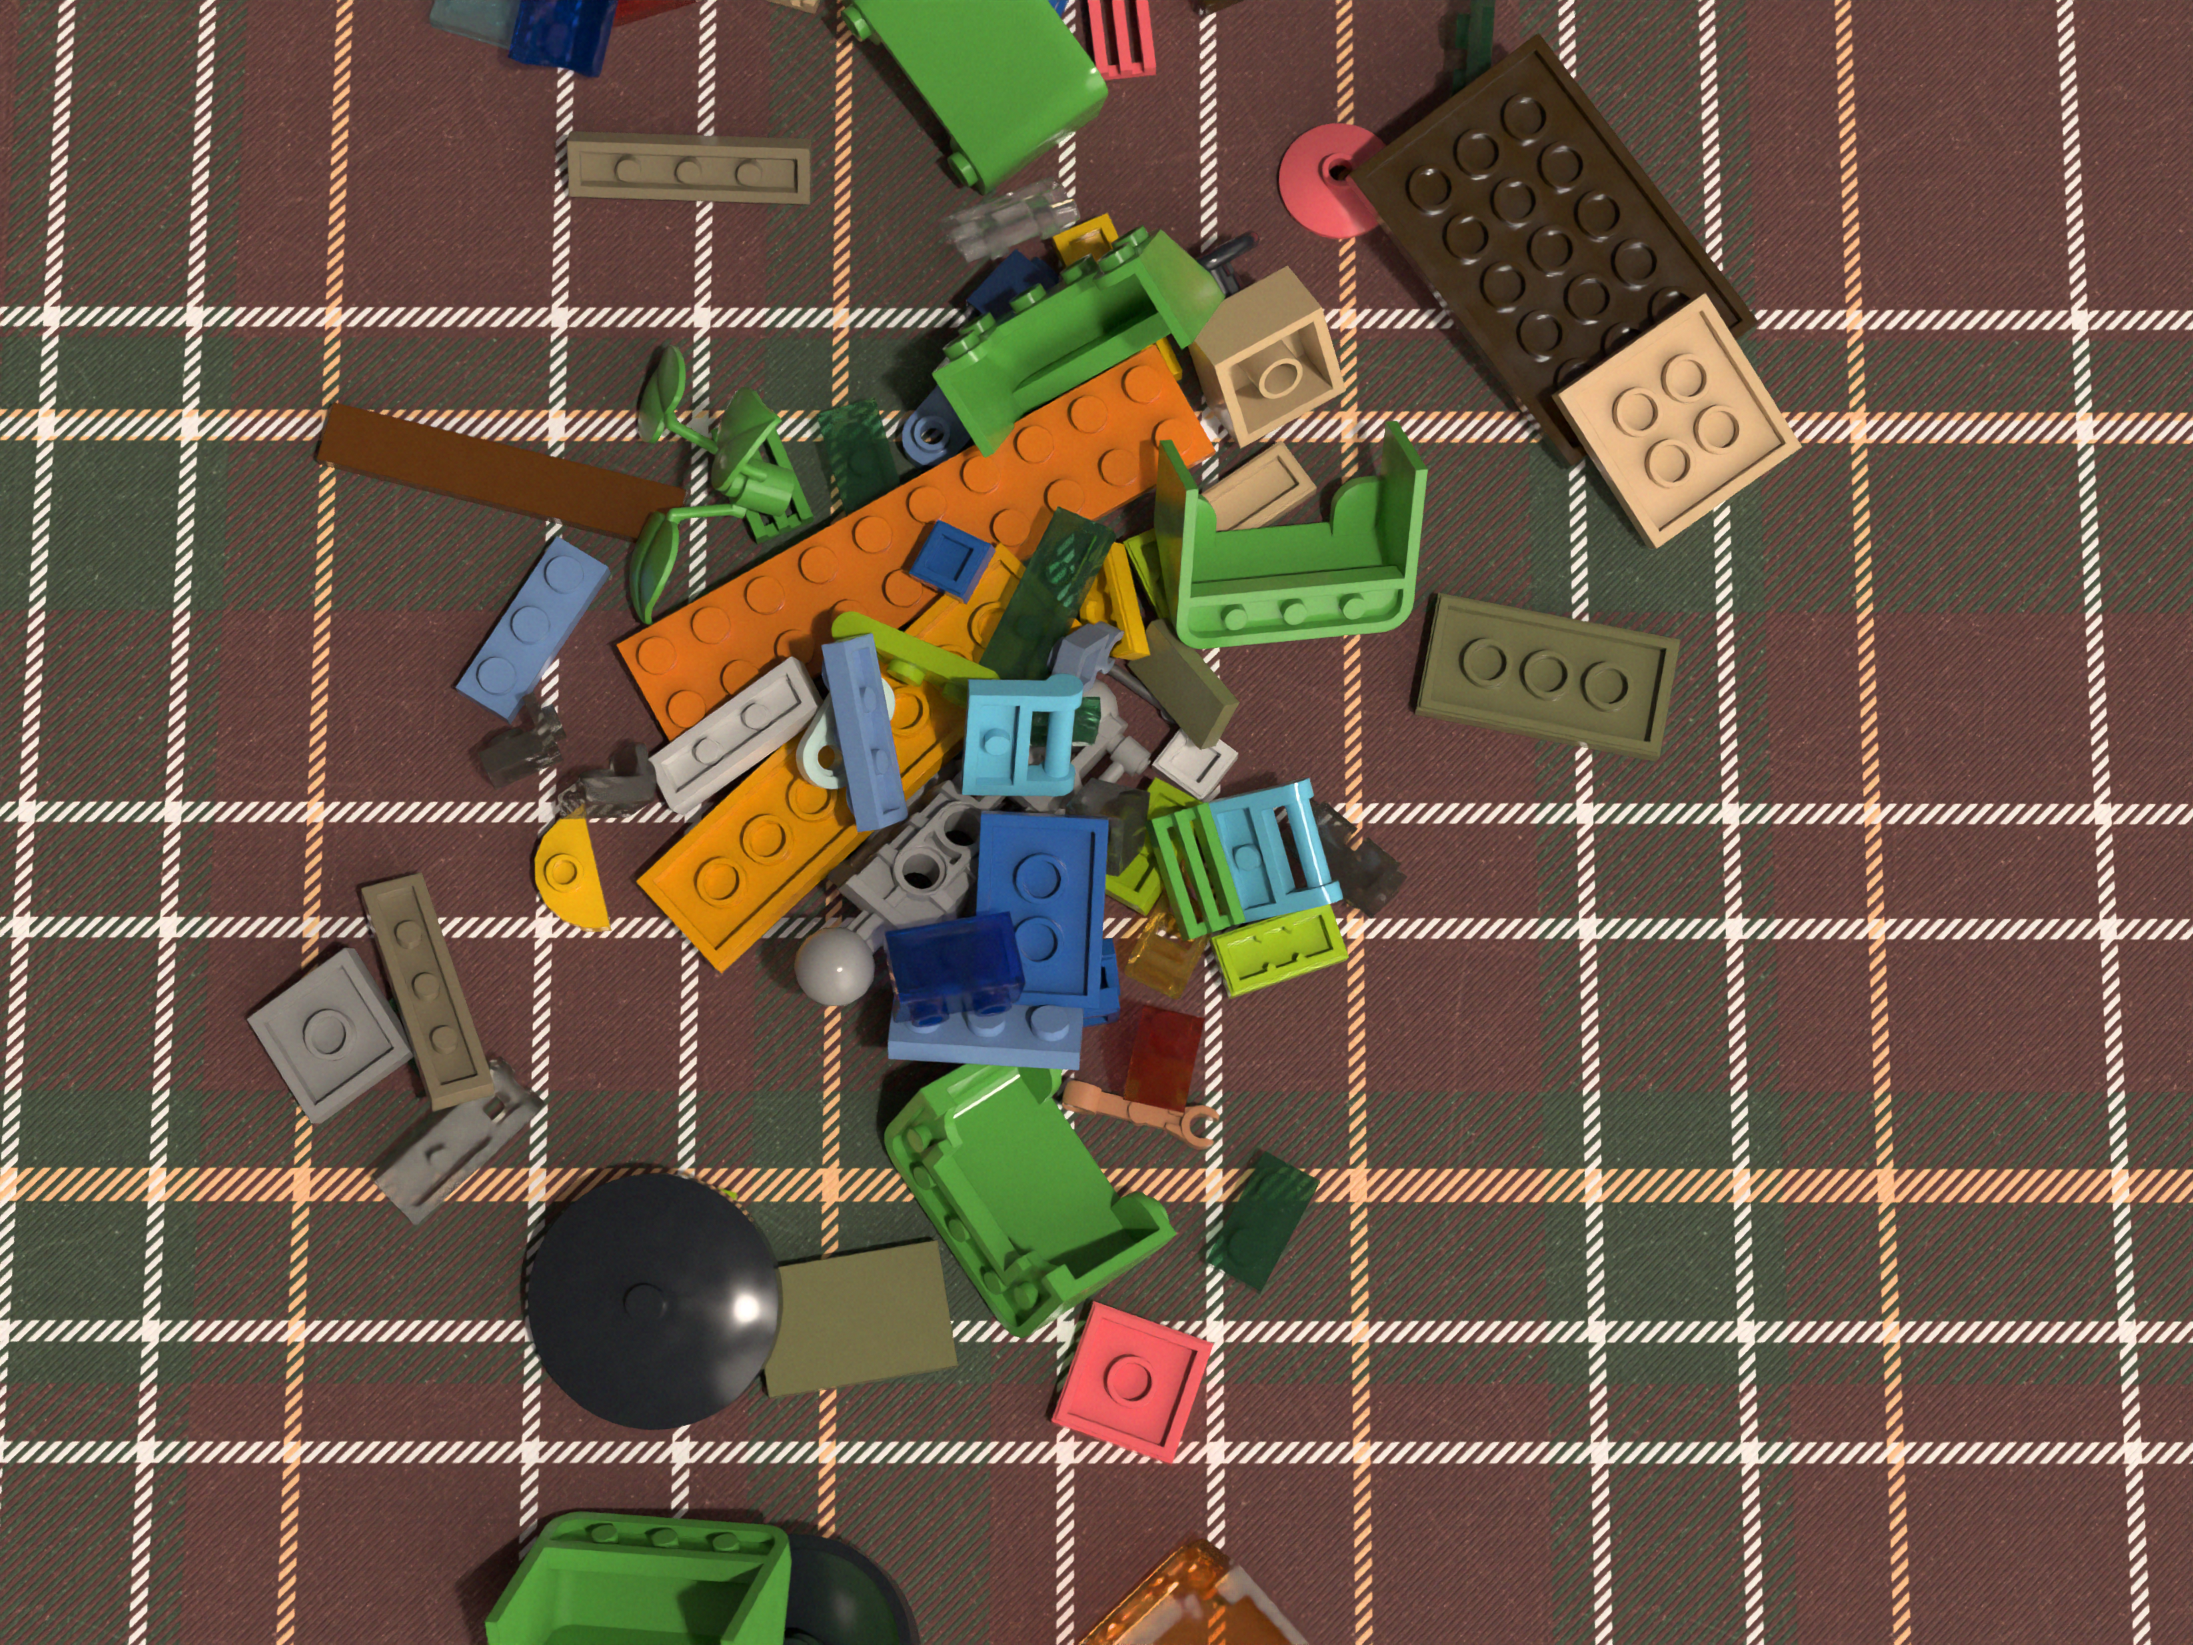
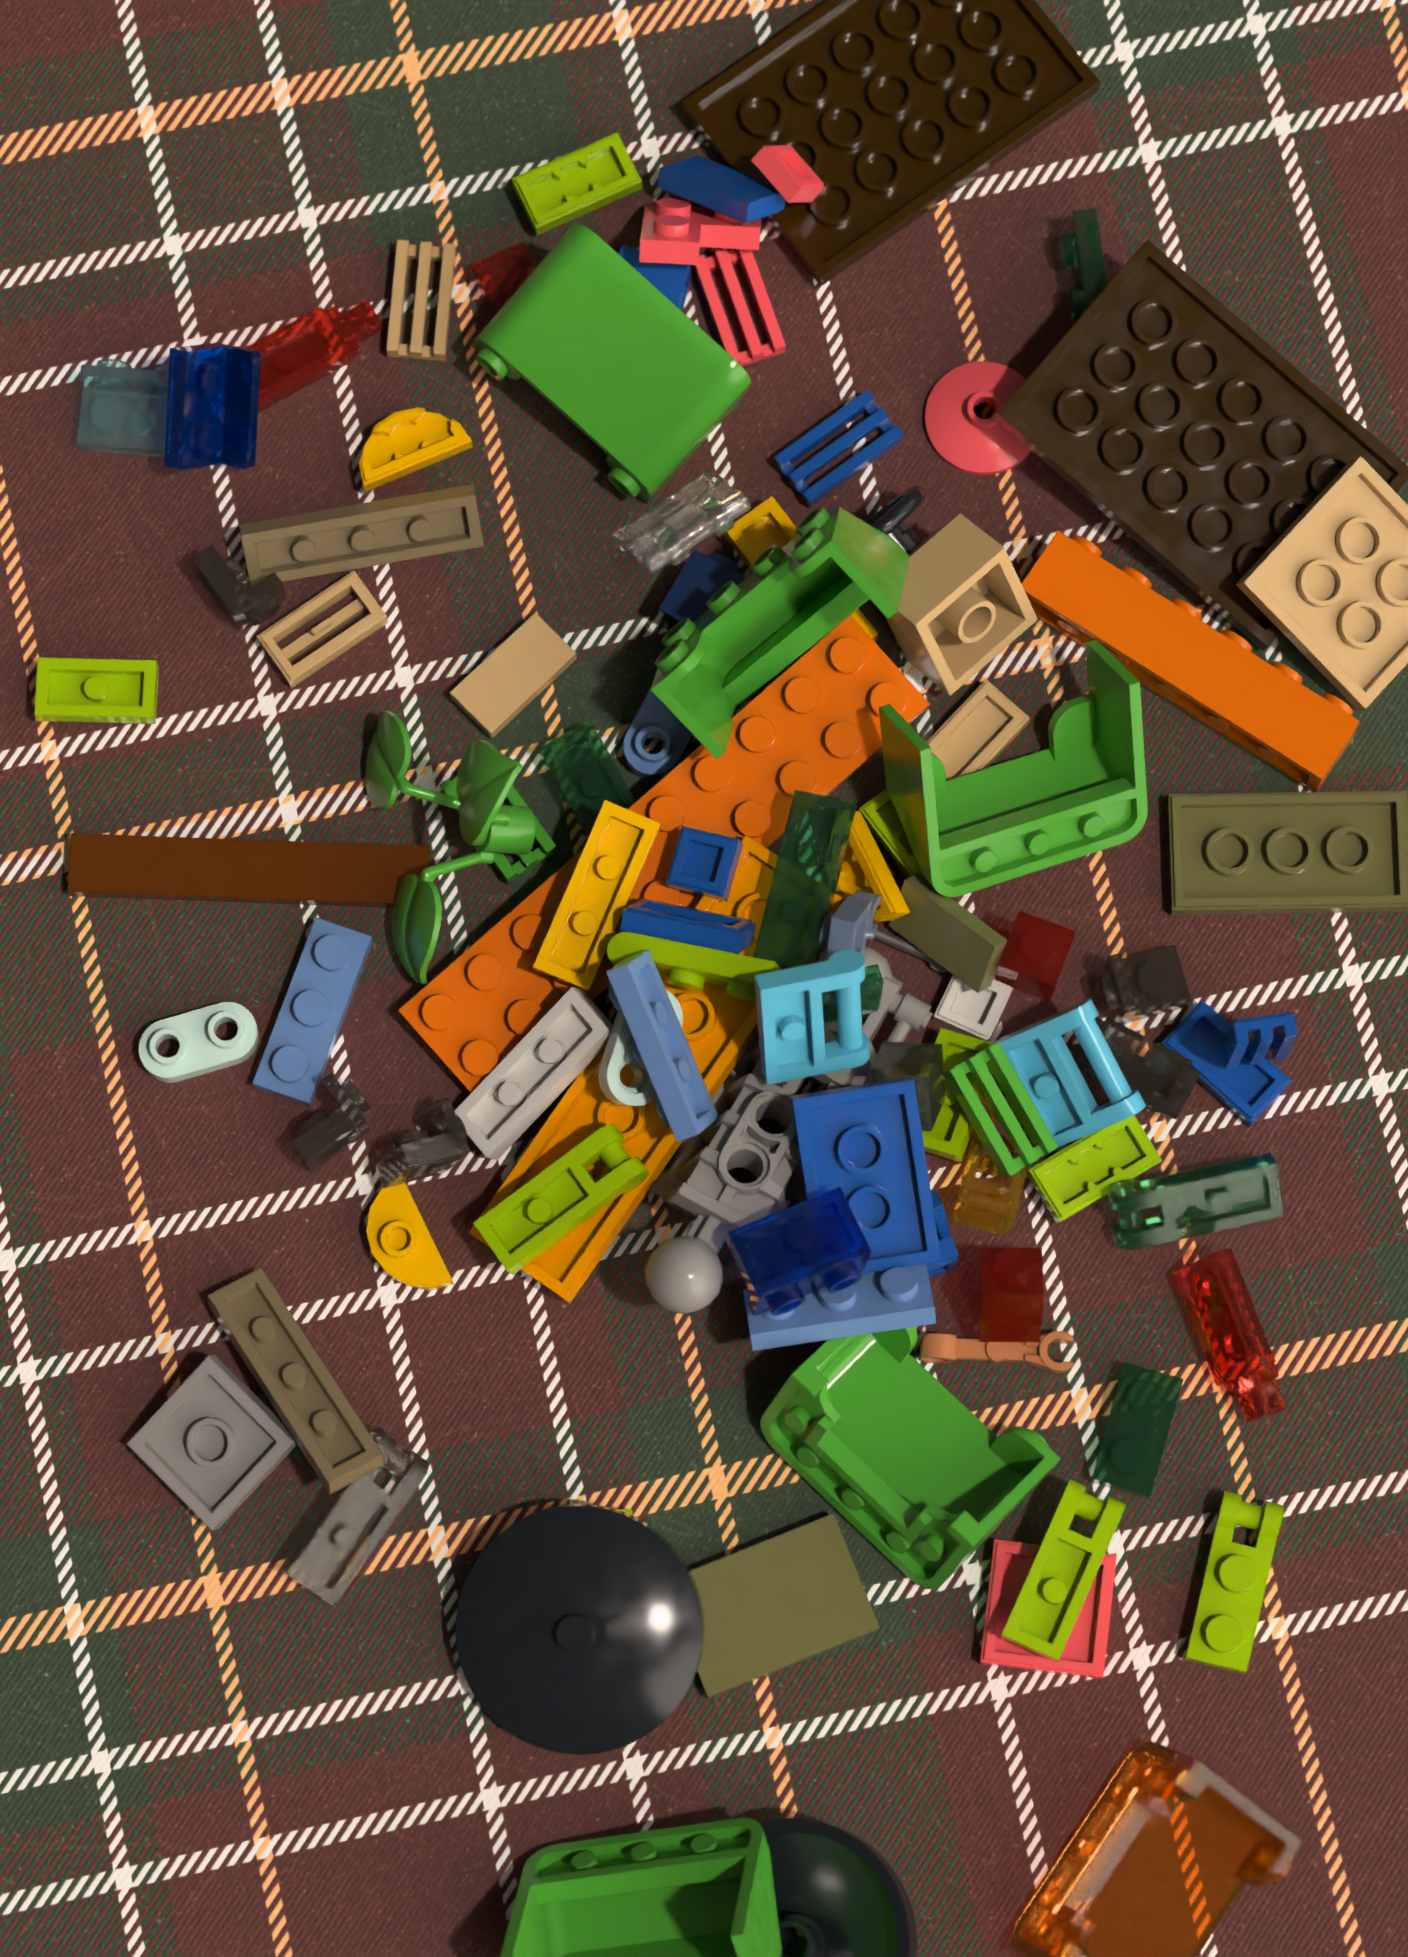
camera: 10 degrees left, 0 degrees up
(391, 266) = (96, 690): none -> lime plate
(411, 636) = (199, 1046): none -> light aqua plate
(553, 203) = (227, 584): none -> clear smoke bracket
(640, 272) = (333, 648): none -> tan tile
(731, 866) = (559, 1199): none -> lime plate
(757, 87) = (409, 443): none -> yellow plate
(810, 338) = (513, 675): none -> tan tile
(837, 570) = (596, 896): none -> yellow plate
(920, 619) = (688, 925): none -> blue tile
(1152, 1349) = (1062, 1573): none -> lime plate
(1175, 161) = (876, 419): none -> blue tile
(1266, 725) = (1034, 955): none -> clear red brick
(1325, 1400) = (1233, 1585): none -> lime plate
(1371, 778) = (1144, 984): none -> clear smoke bracket
(1373, 1006) = (1196, 1202): none -> clear green plate
(1379, 1146) = (1231, 1333): none -> clear red hinge
(1437, 874) = (1242, 1089): none -> blue tile
(1472, 859) = (1278, 1040): none -> blue tile
(1489, 465) = (1189, 661): none -> orange brick

